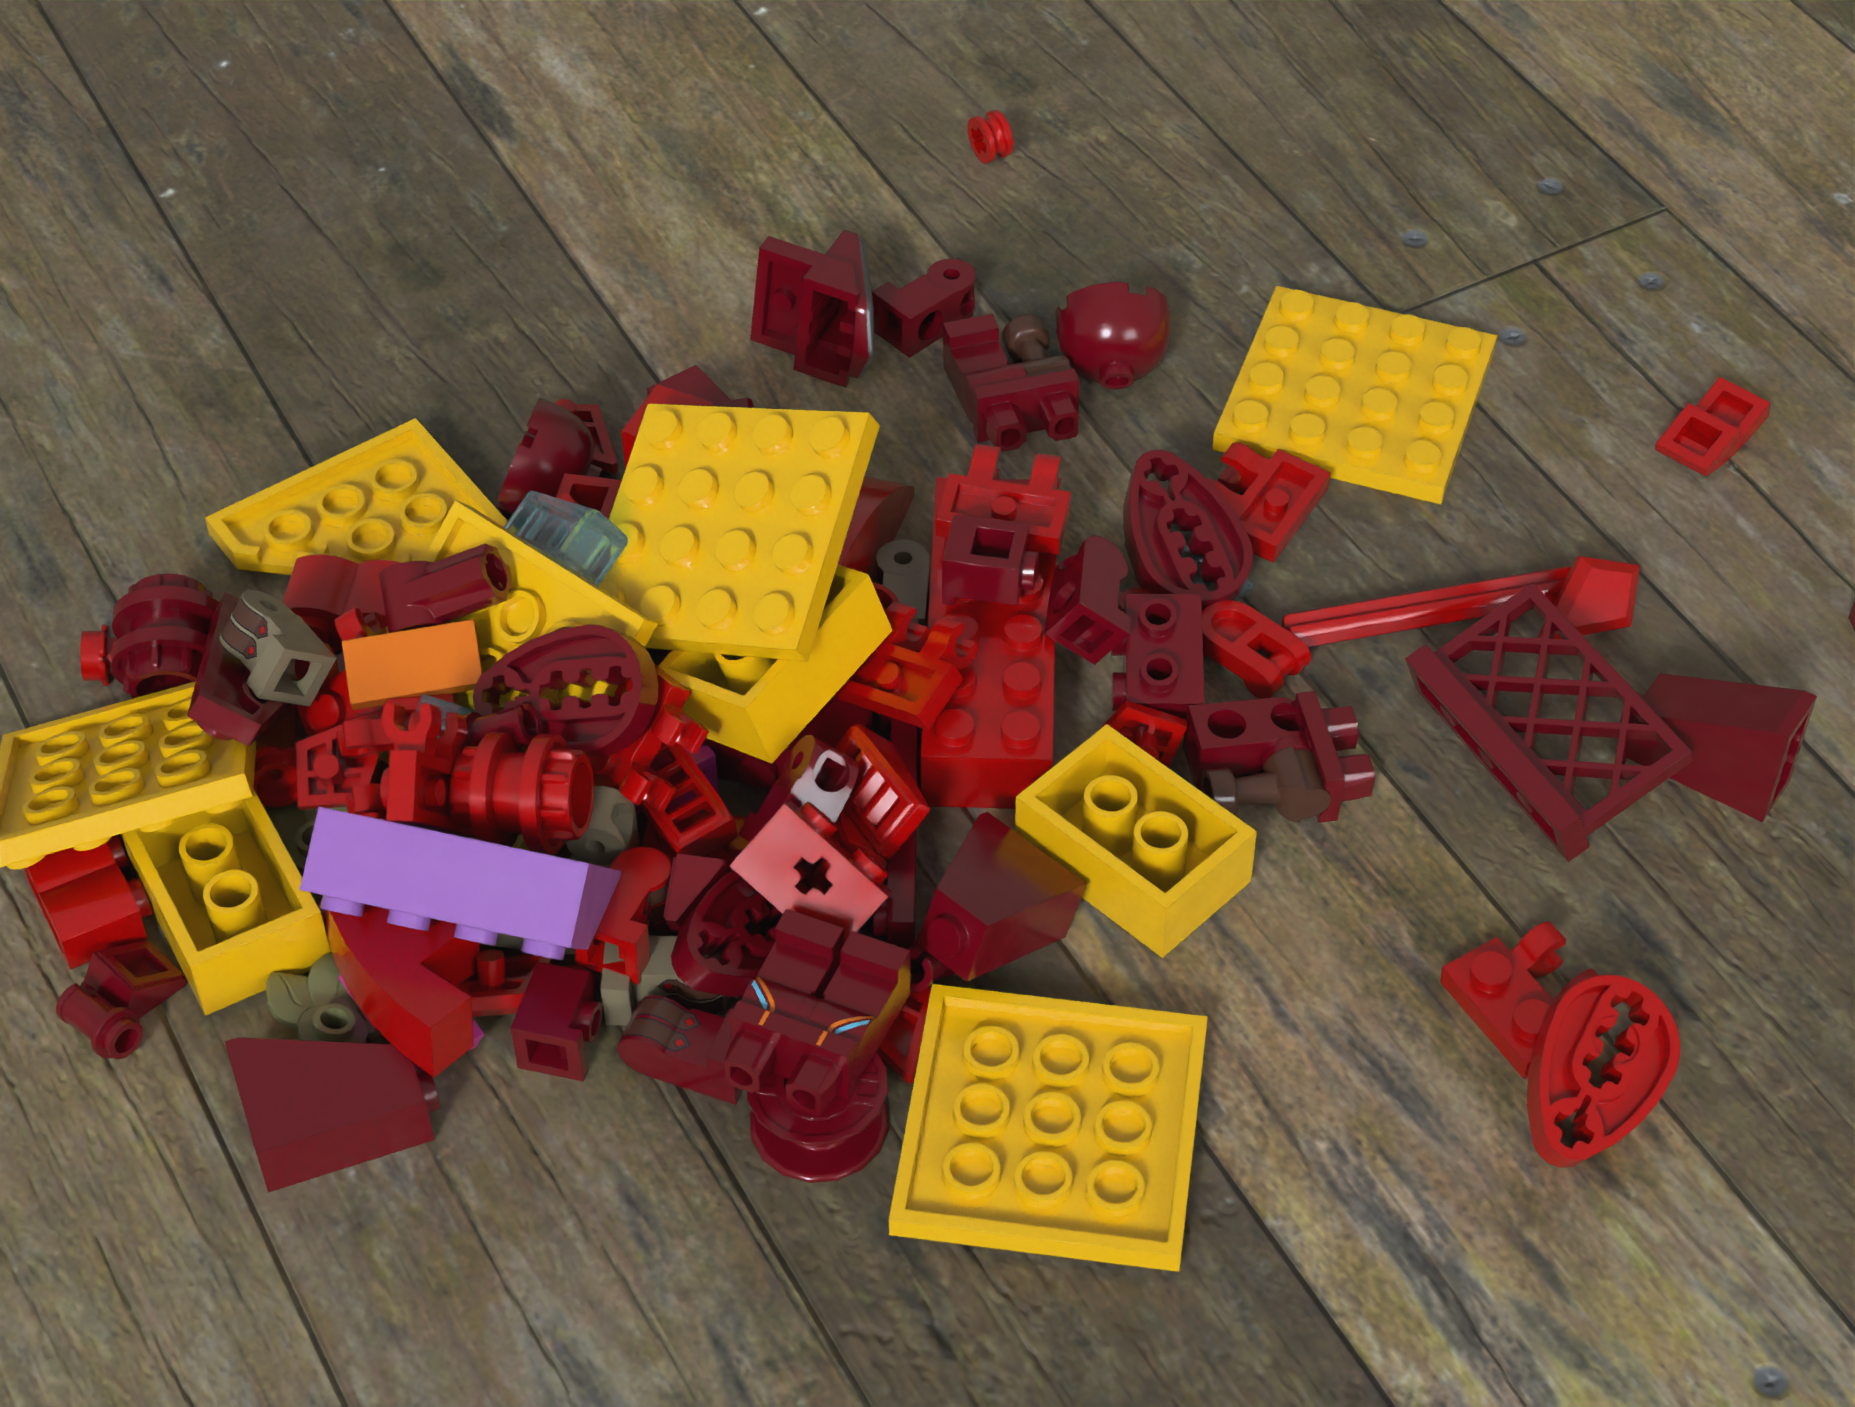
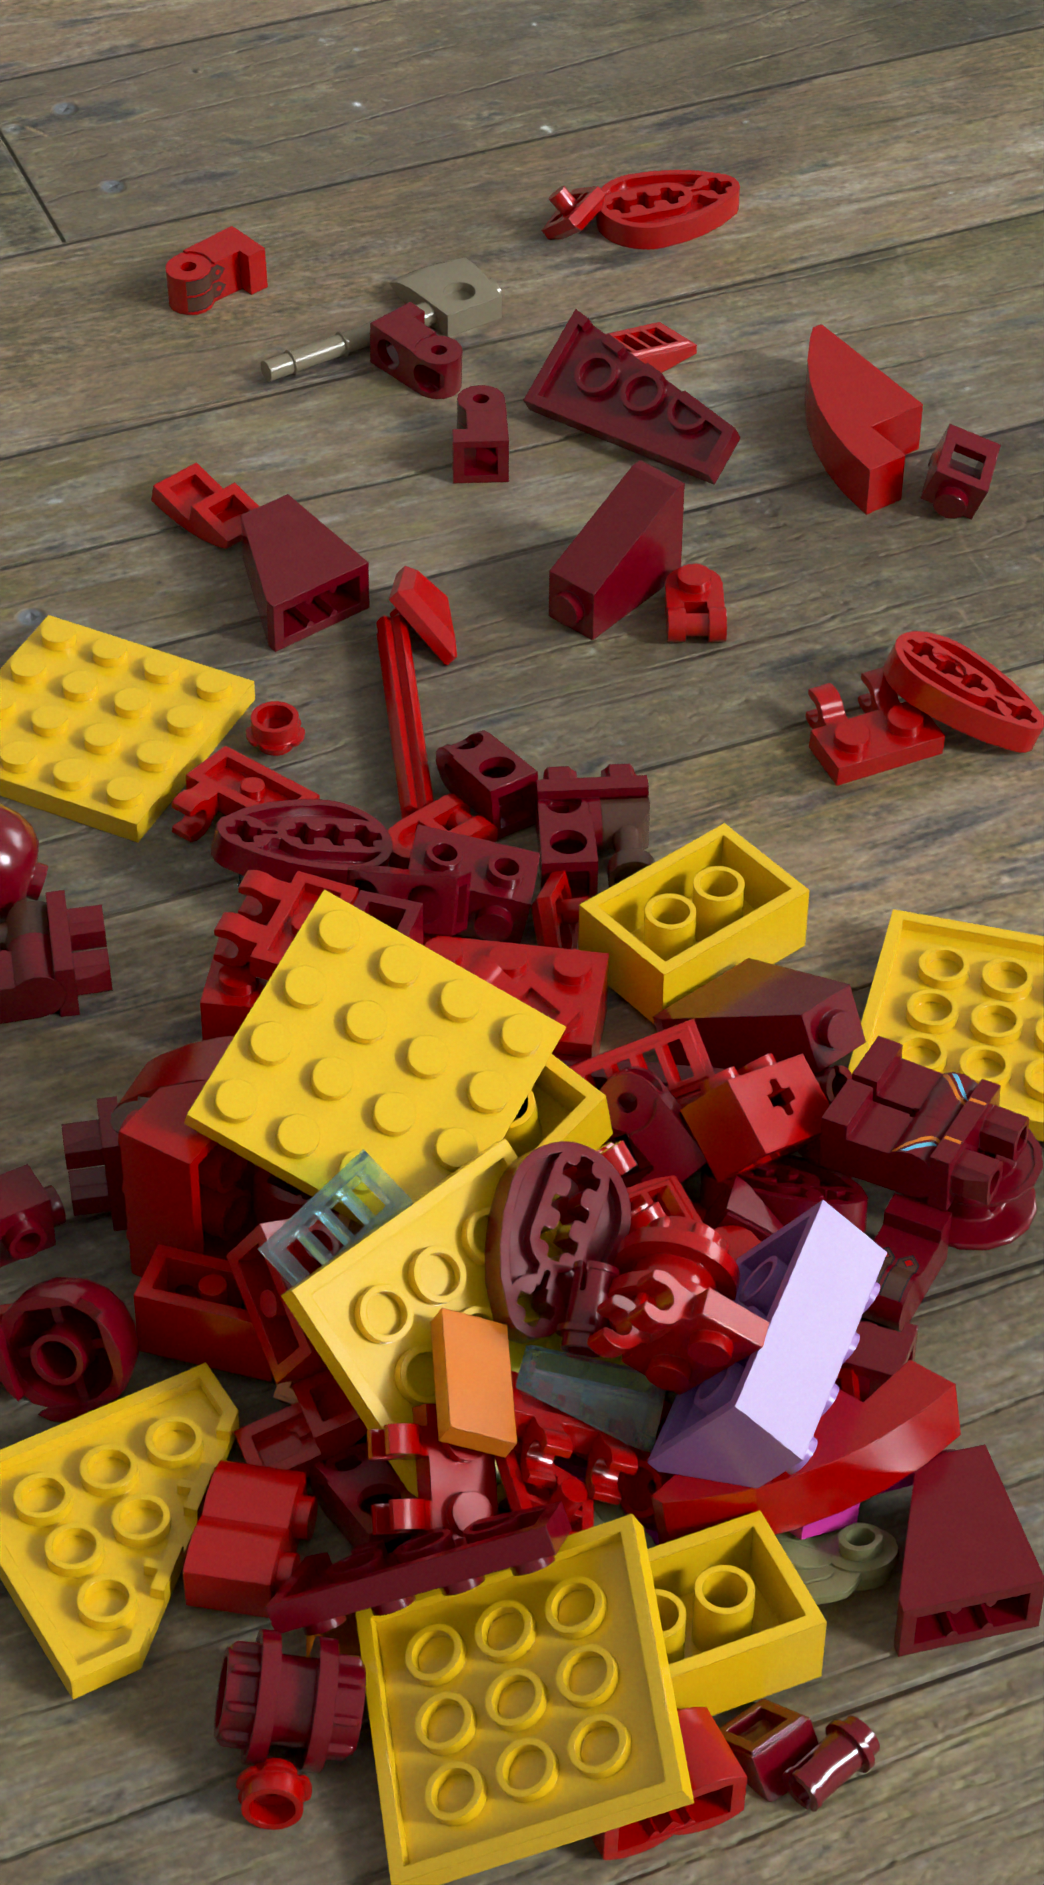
camera: 85 degrees left, 5 degrees down
(268, 641) = (420, 1512): dark tan leg -> none
(440, 591) = (401, 1345): dark red piece -> none
(1339, 666) = (490, 781): none -> dark red leg
(1381, 512) = (275, 728): none -> red plate
(1513, 761) = (608, 689): dark red fence -> none
(1617, 493) = (300, 572): none -> dark red slope
(1714, 829) = (695, 604): none -> red plate

